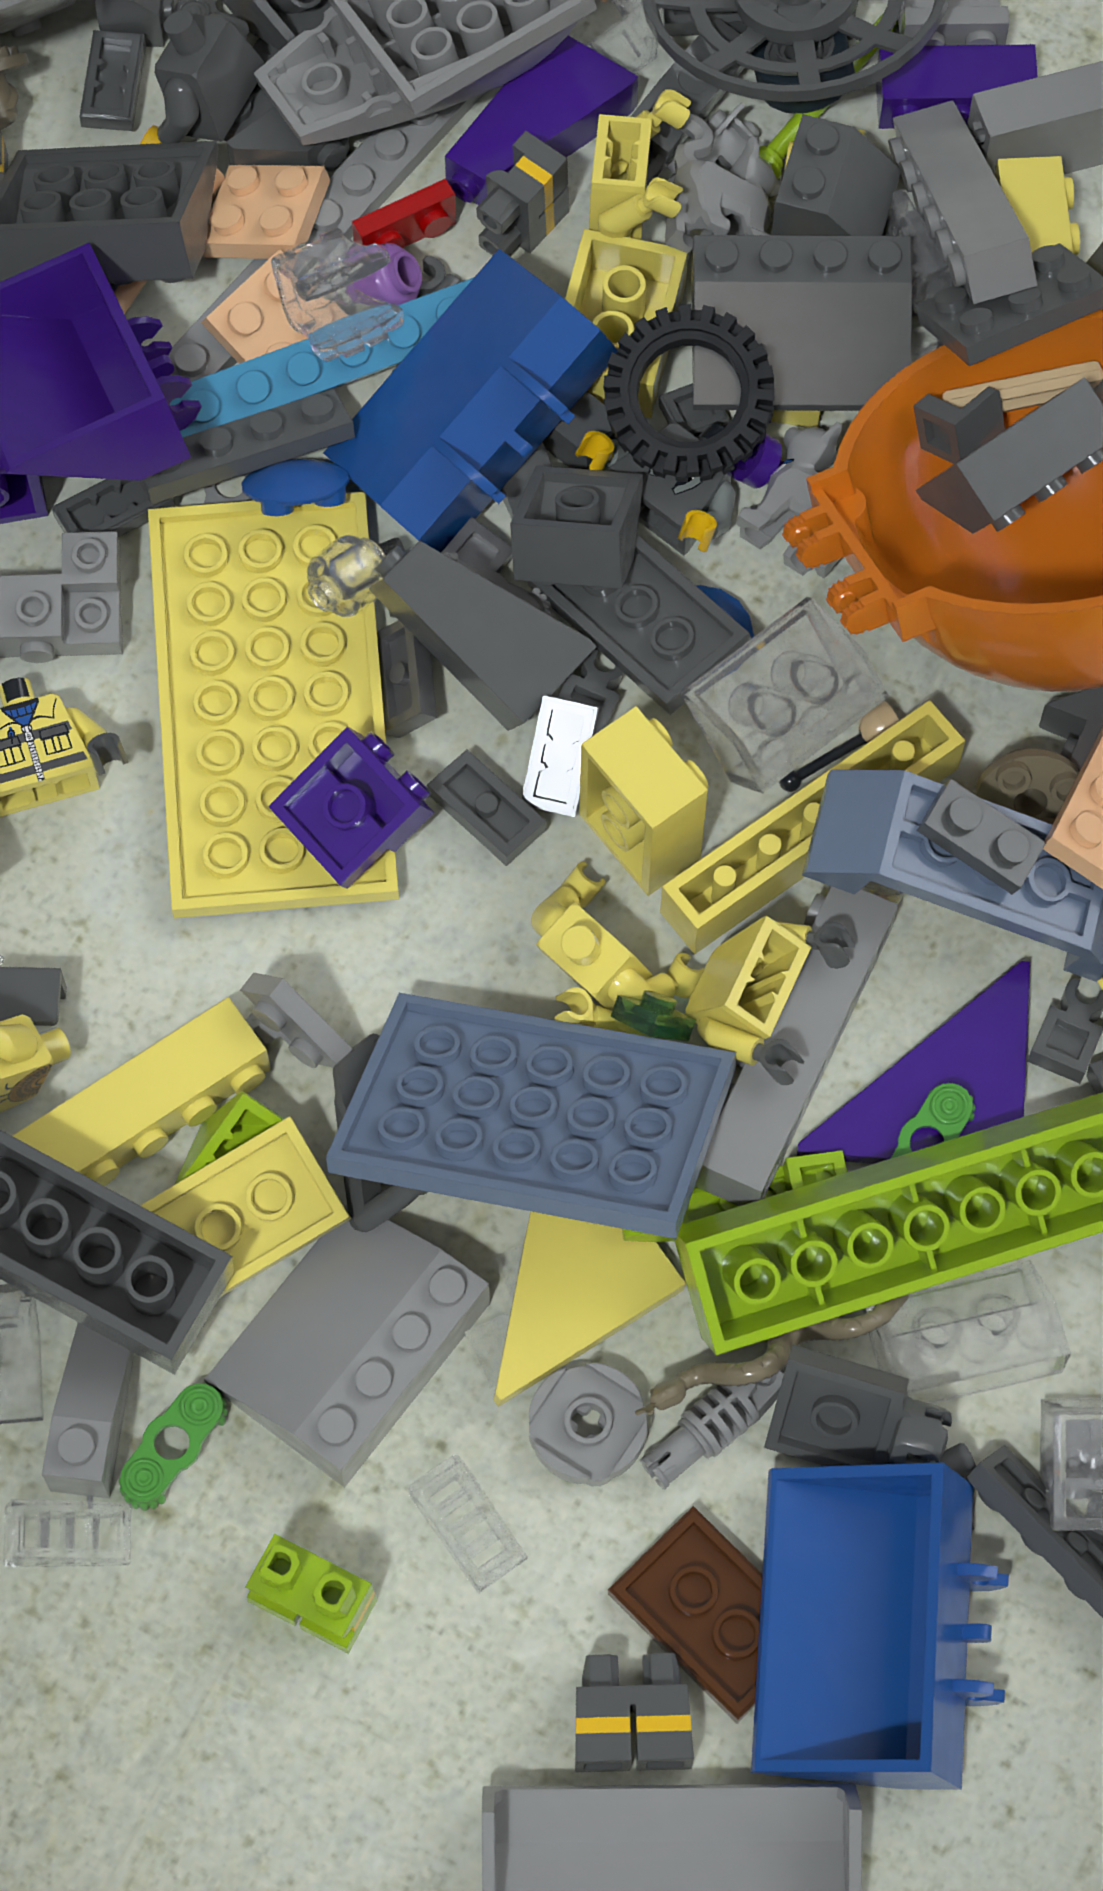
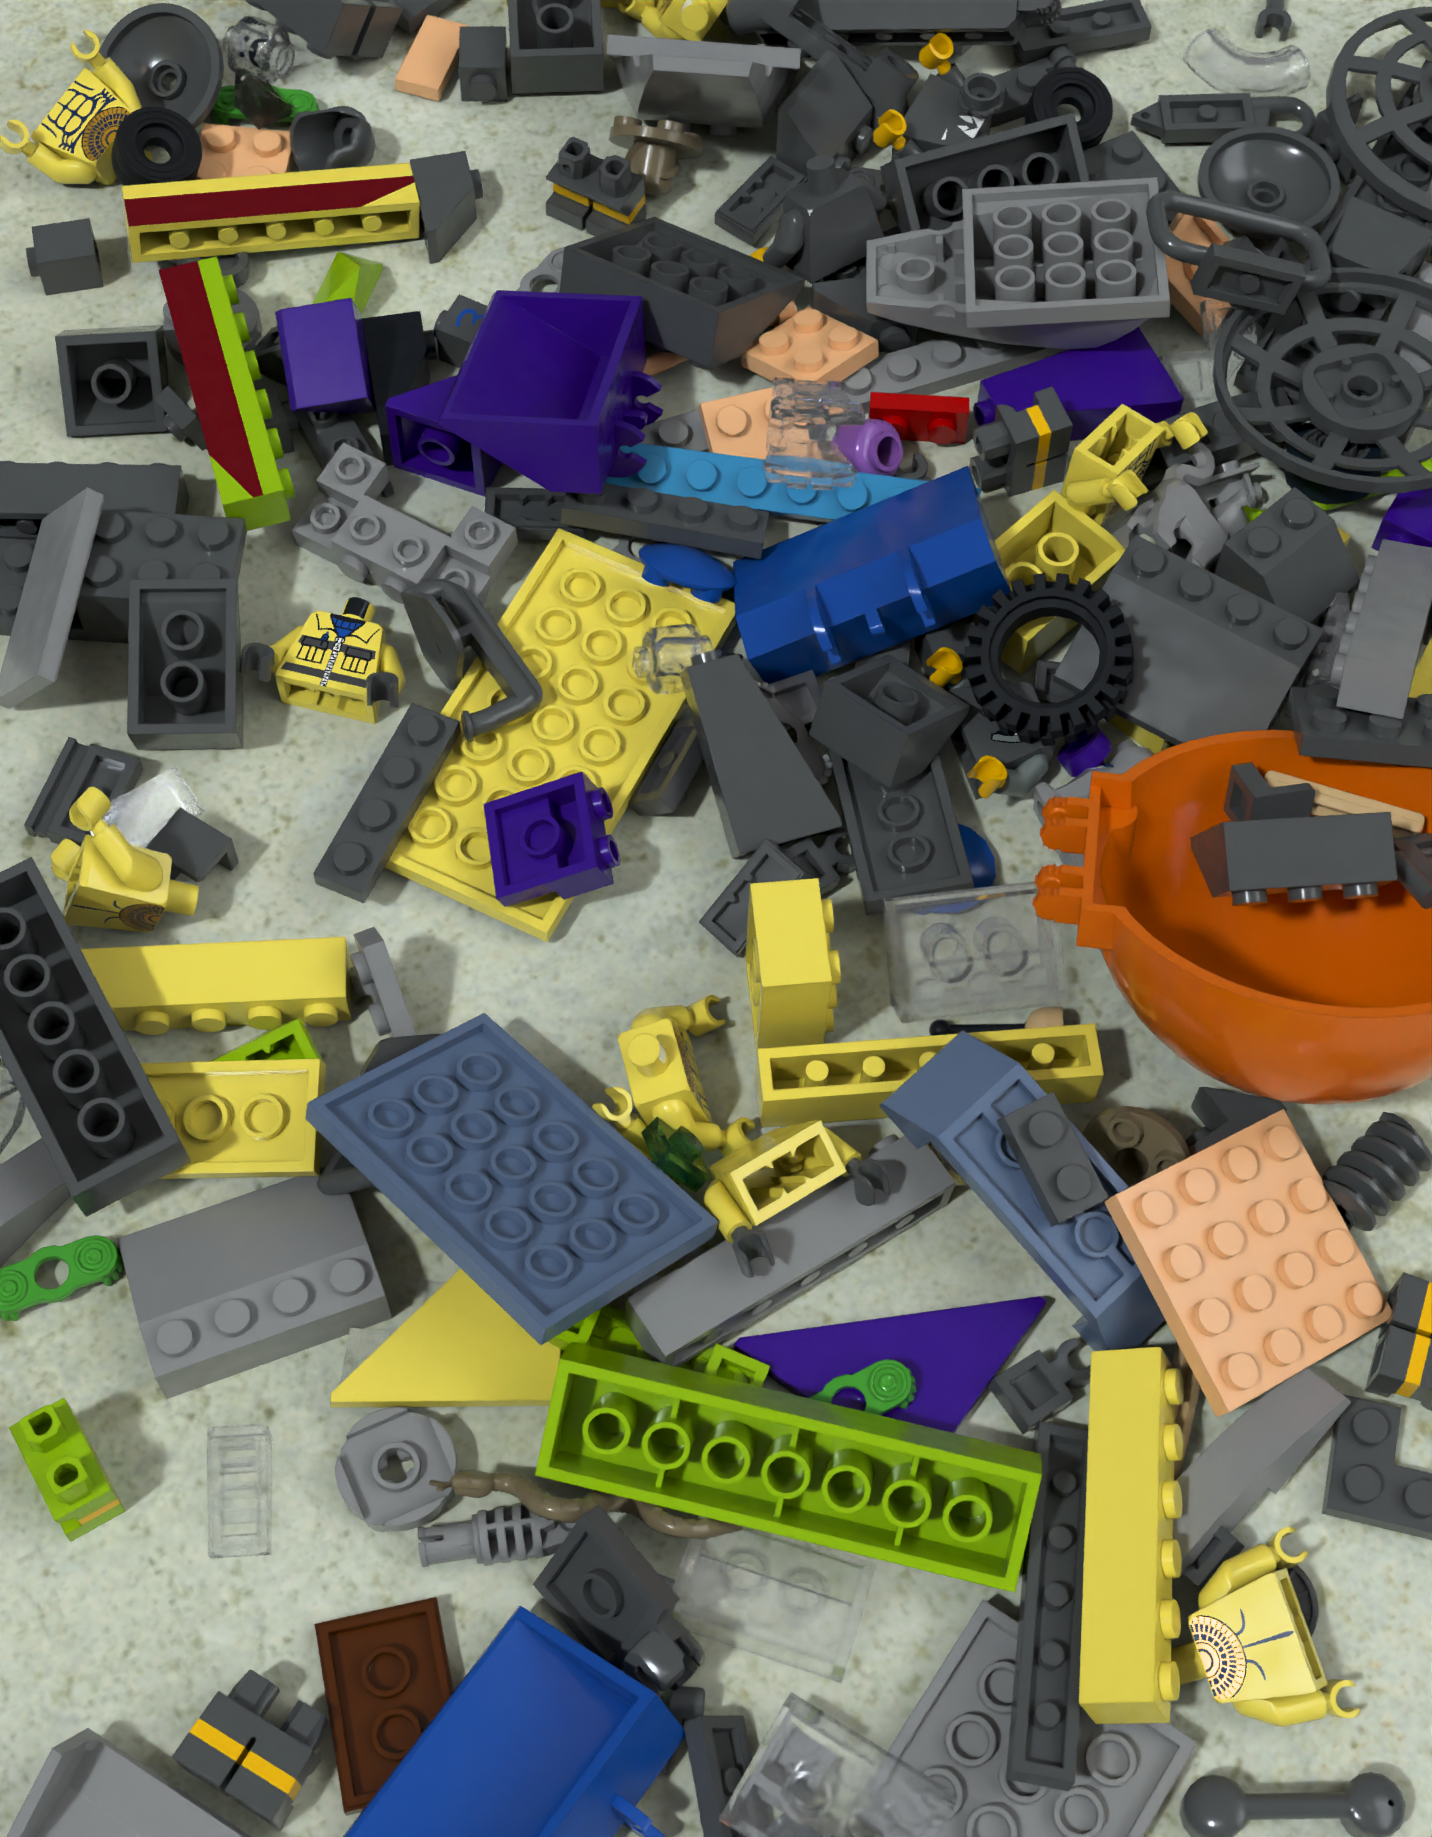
camera: 30 degrees right, 5 degrees down
(124, 667) = (445, 646): none -> dark grey piece
(176, 854) = (387, 803): none -> dark grey plate
(486, 807) = (667, 908): dark grey plate -> none

